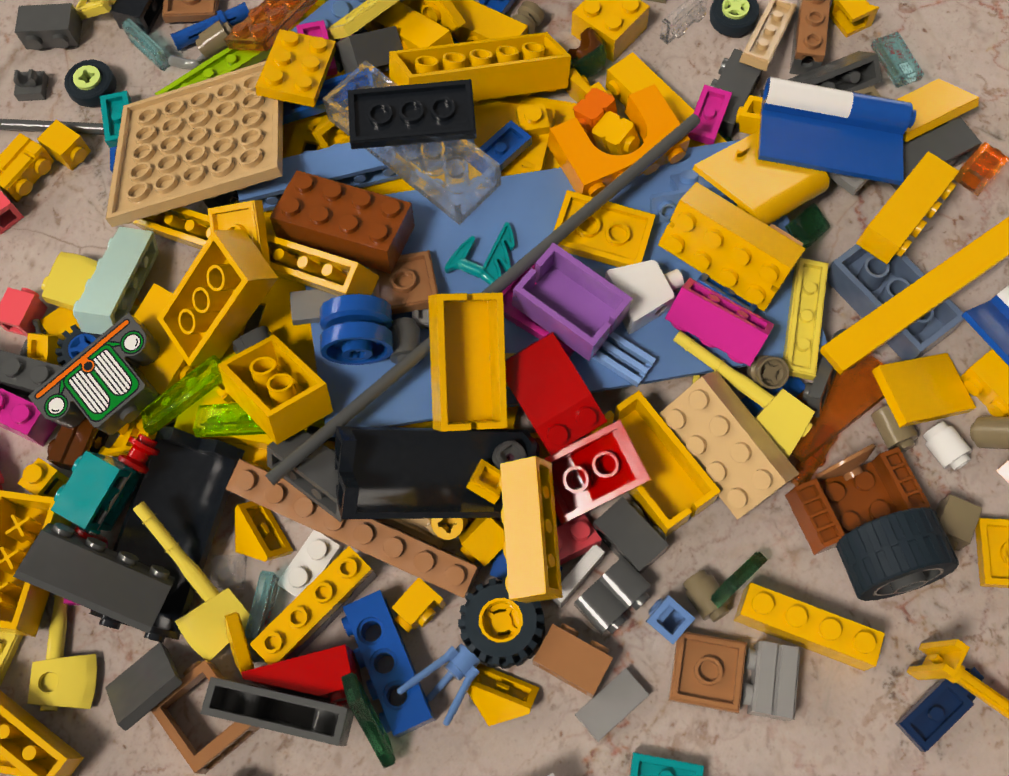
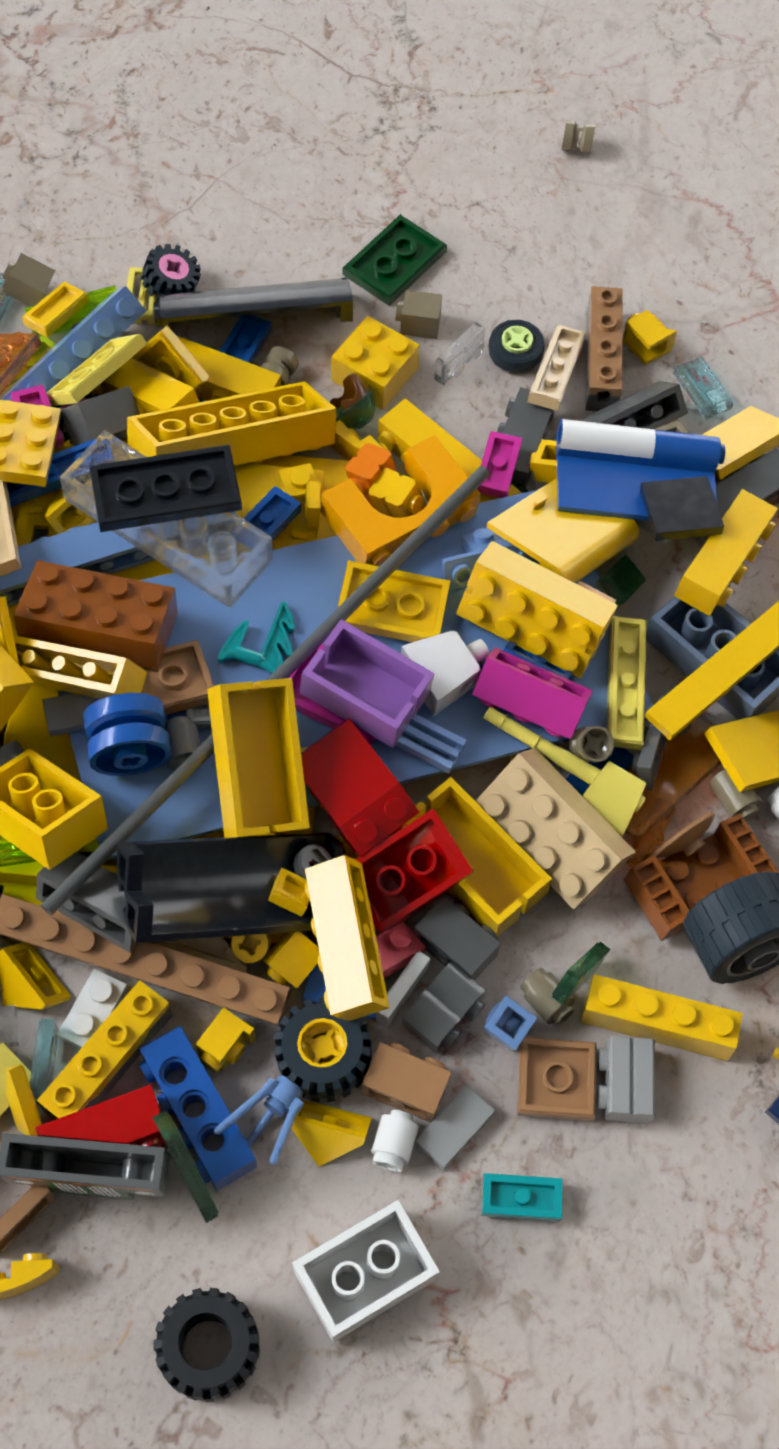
camera: 15 degrees left, 5 degrees down
(542, 138) = (312, 505): none -> yellow tile
(556, 712) = (394, 1141): none -> white brick
(871, 165) = (681, 508): none -> black tile

